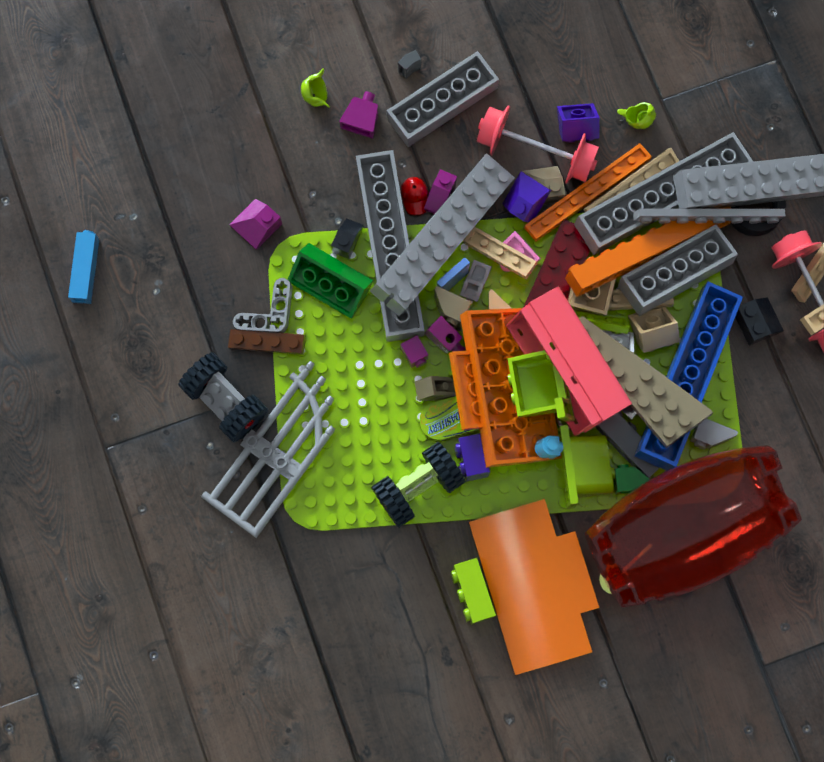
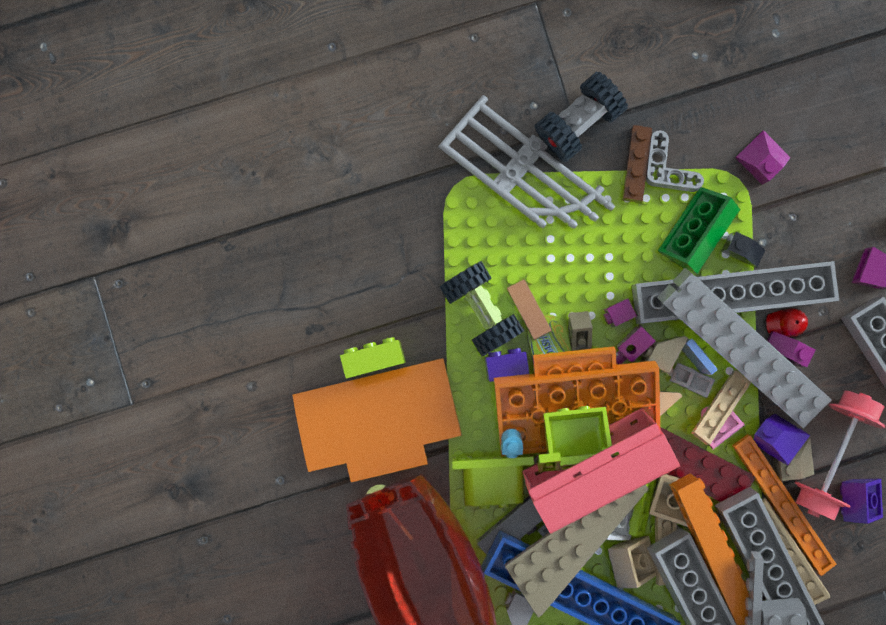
camera: 90 degrees right, 10 degrees up
(416, 439) = (529, 309): none -> nougat tile
(628, 479) = (476, 523): green slope -> none
(639, 116) = (866, 566): lime hair -> none

